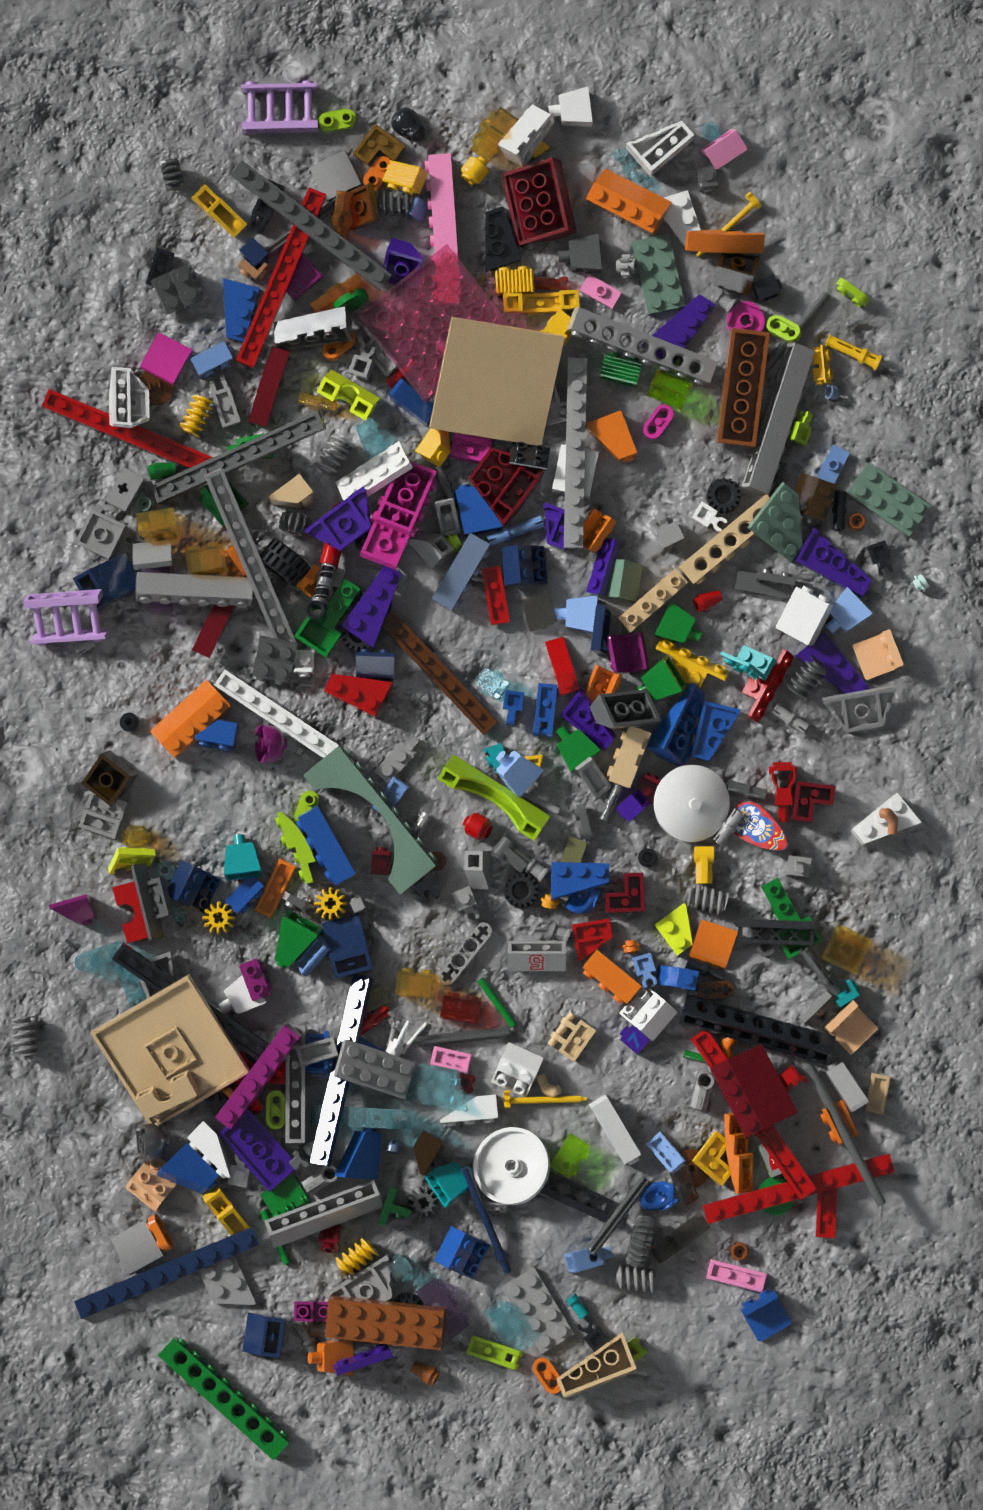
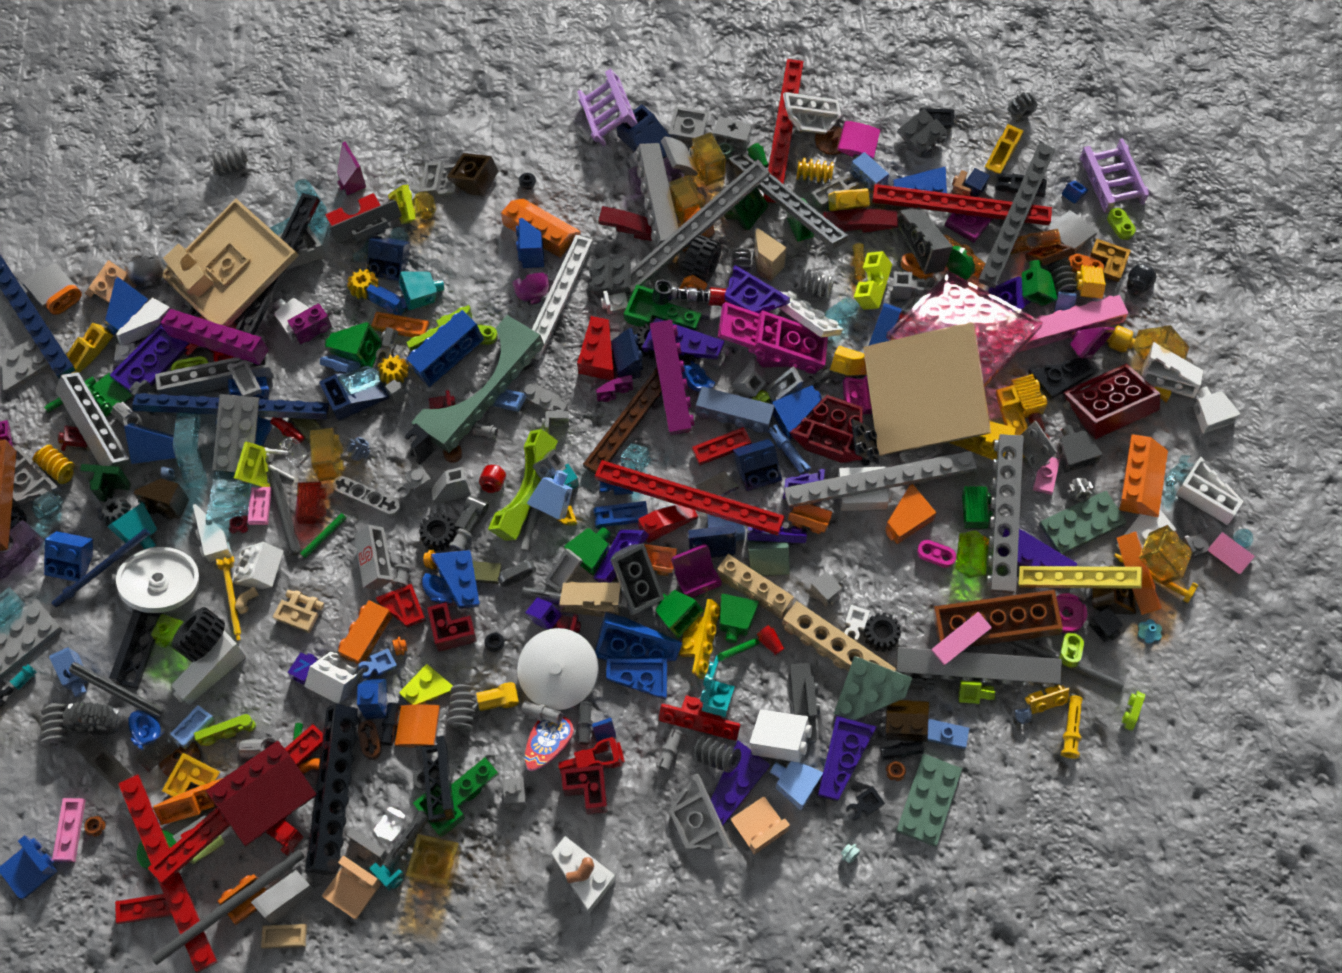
camera: 75 degrees right, 20 degrees down
(245, 391) = (848, 199): none -> yellow brick
(285, 153) = (1074, 191): none -> blue slope
(338, 937) = (360, 379): none -> clear light blue slope
(396, 232) = (1038, 285): none -> green torso
(408, 690) = (607, 391): none -> magenta slope
(413, 952) = (358, 449): none -> sand blue gear
(413, 1058) = (252, 465): none -> neon yellow wing
(415, 626) = (670, 377): none -> magenta brick
(416, 600) = (697, 377): none -> blue hat
(425, 748) = (555, 418): none -> light grey bracket
(473, 202) = (1089, 341): none -> magenta slope
(482, 765) = (548, 465): none -> flat silver bracket
(551, 640) = (690, 497): none -> red plate
(579, 295) = (1037, 446): none -> light grey hinge
(588, 1128) = (198, 634): none -> black tyre
(677, 1119) = (225, 730): none -> lime plate
(714, 632) = (738, 649): none -> green bar
(717, 212) = (1165, 555): none -> clear yellow brick
(720, 298) = (1080, 577): none -> light yellow plate
(757, 427) = (961, 638): none -> bright pink tile
(758, 774) = (604, 729): none -> blue slope
(775, 253) = (1149, 631): none -> medium azure plant

